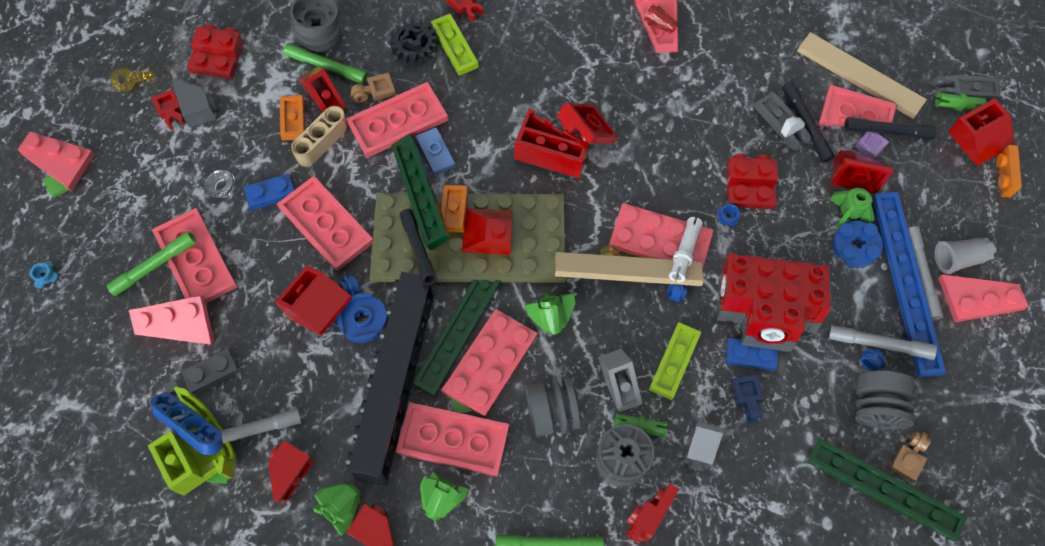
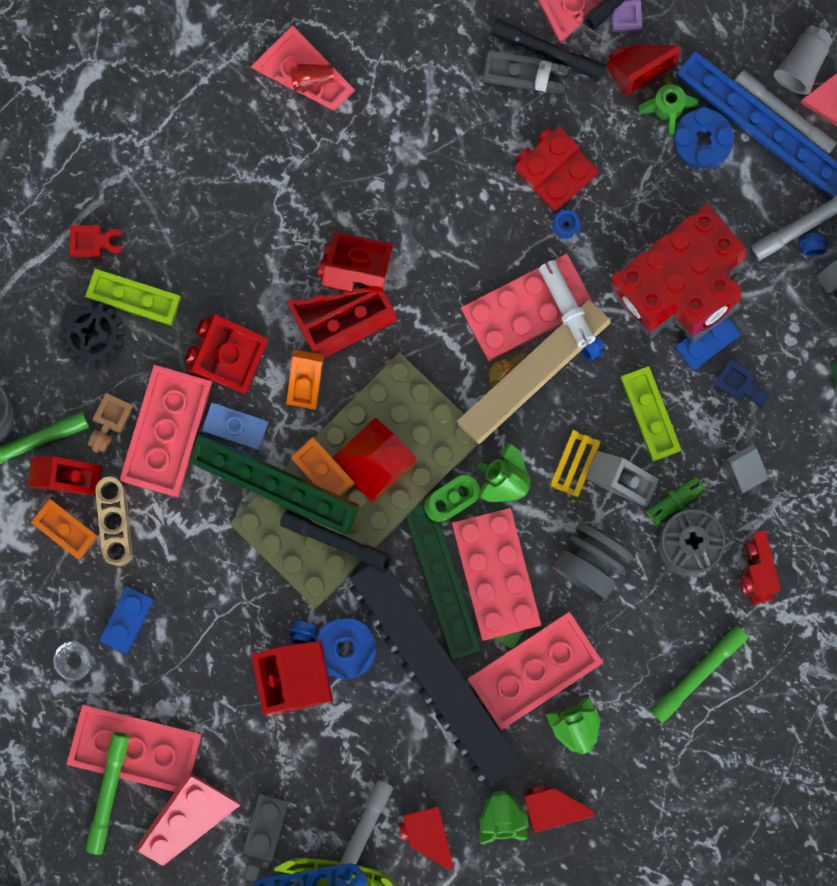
camera: 45 degrees left, 15 degrees up
(325, 223) = (214, 598): coral plate -> none
(470, 109) = (225, 353): none -> red plate
(496, 157) = (305, 379): none -> orange plate
(508, 292) = (450, 499): none -> bright green plate
(596, 338) = (584, 441): none -> yellow tile

